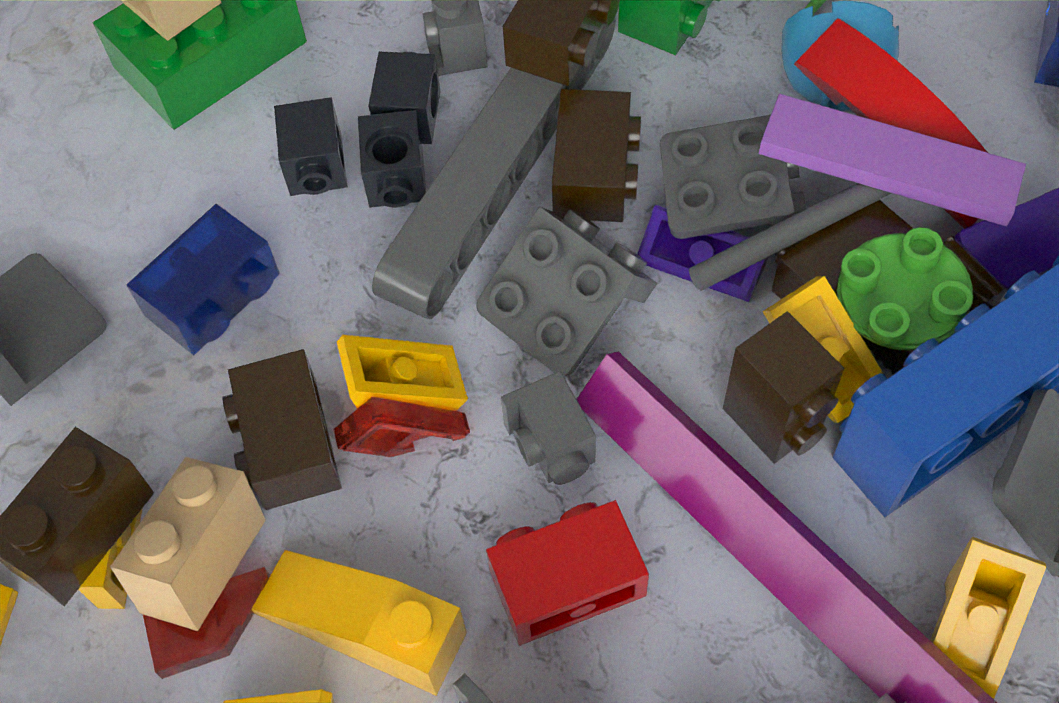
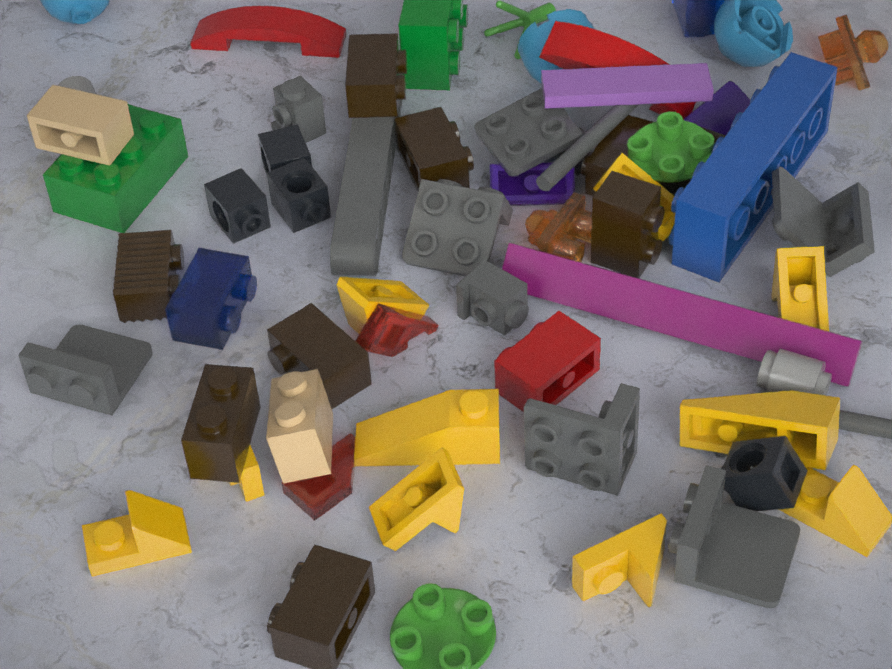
camera: 25 degrees left, 15 degrees down
(148, 207) = (146, 274): none -> dark brown brick
(691, 349) = (558, 231): none -> clear orange hips

